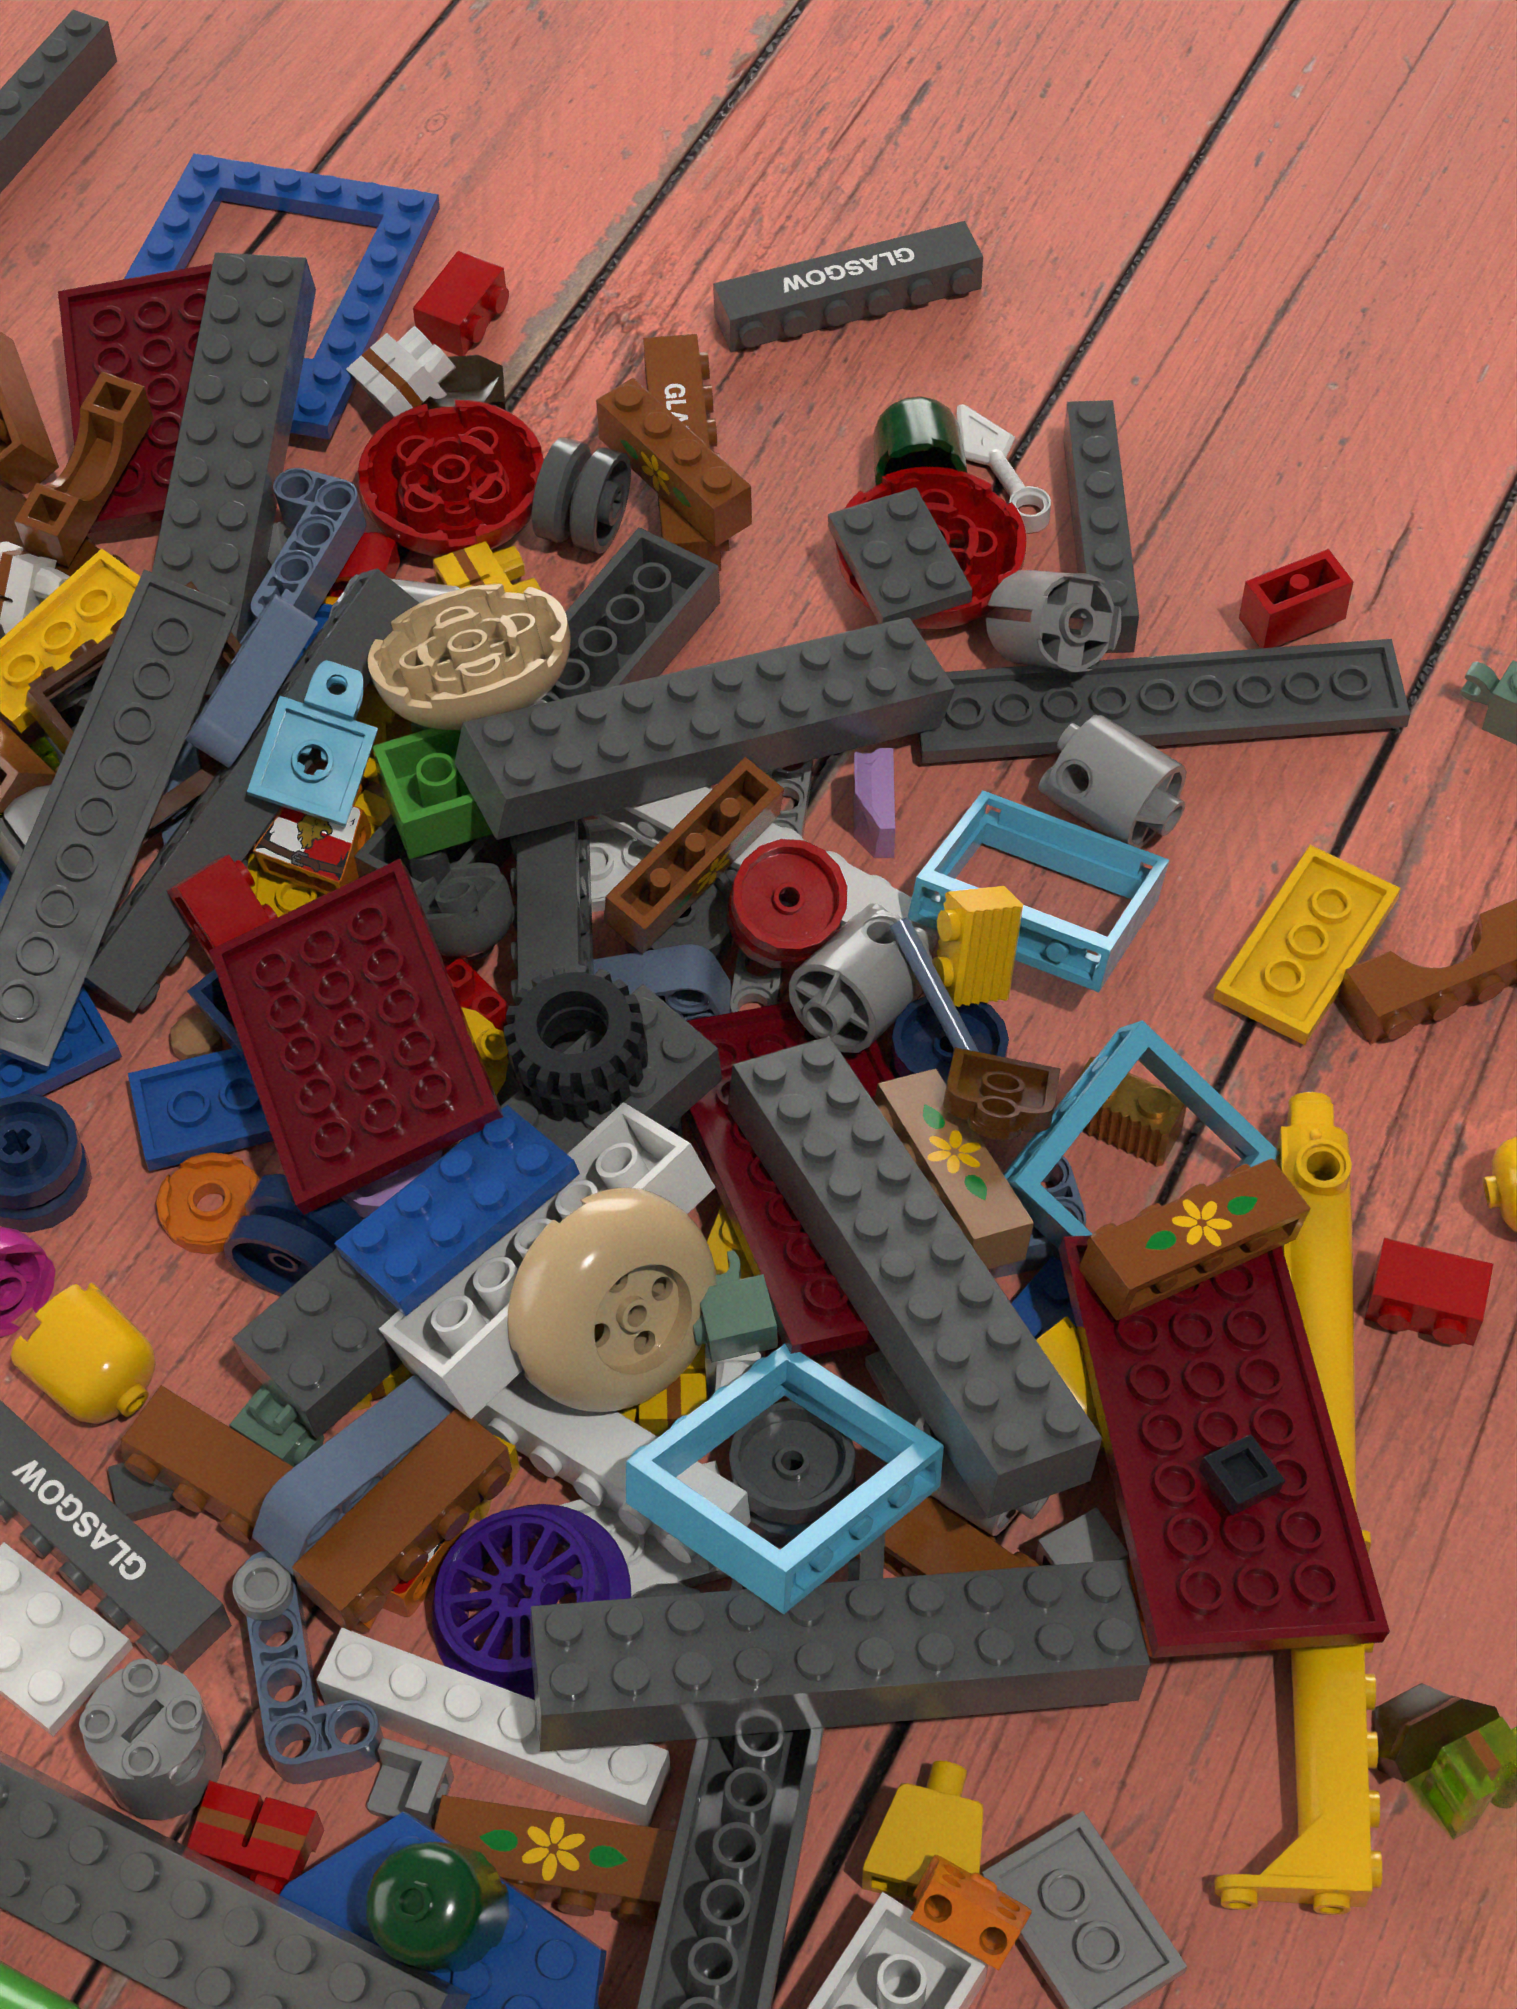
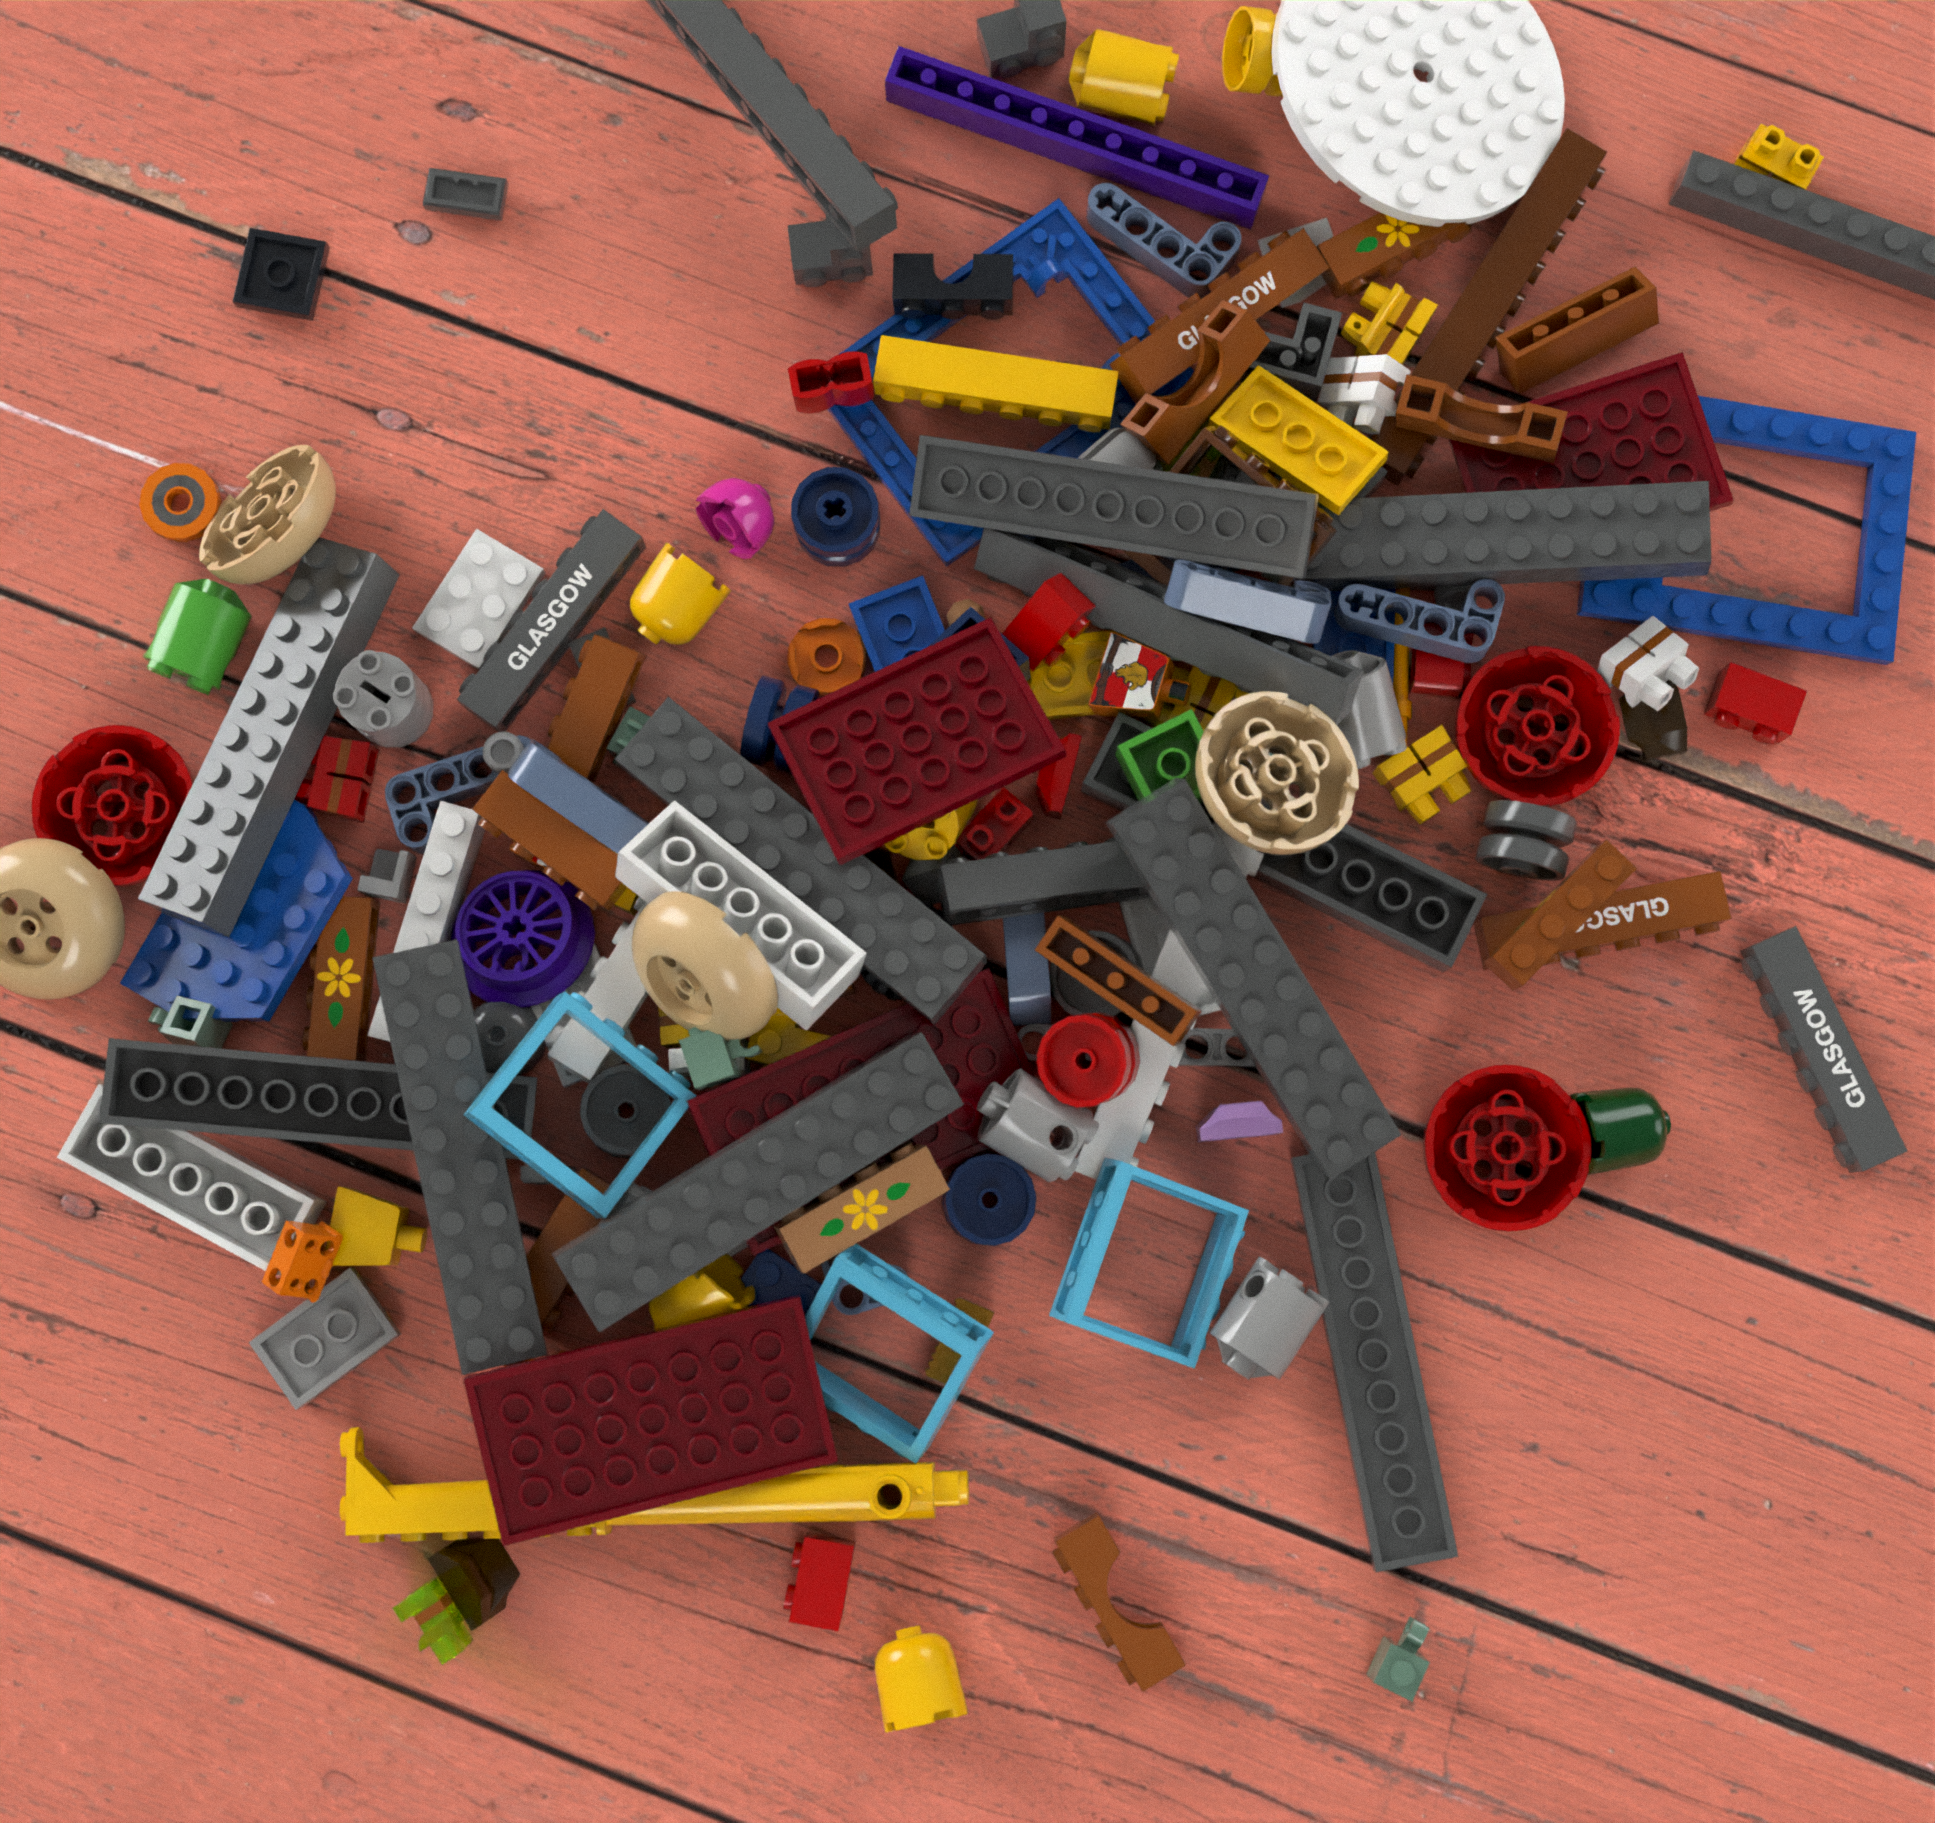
camera: 85 degrees right, 25 degrees up
(319, 723) = (1203, 671): medium azure plate -> none
(437, 1906) = (266, 906): dark green cylinder -> none
(456, 1210) = (764, 842): blue plate -> none
(468, 910) = (1064, 803): dark grey cylinder -> none
(570, 1004) = (898, 875): black tyre -> none
(899, 557) = (1477, 1121): dark grey plate -> none
(932, 985) = (1018, 1184): sand blue bar -> none
(978, 944) = (1060, 1214): yellow brick -> none
(990, 445) = (1650, 1189): white piece -> none
(1000, 1094) = (922, 1241): reddish brown plate -> none
(1047, 638) = (1423, 1258): light grey cylinder -> none
(1081, 1541) = (579, 1328): light grey panel -> none
(1100, 508) = (1559, 1295): dark grey brick -> none
(1193, 1238) = (803, 1397): dark orange brick -> none
(1241, 1474) = (602, 1436): black plate -> none
(1295, 599) = (1487, 1471): red brick -> none
(1306, 943) = (1136, 1485): yellow plate -> none

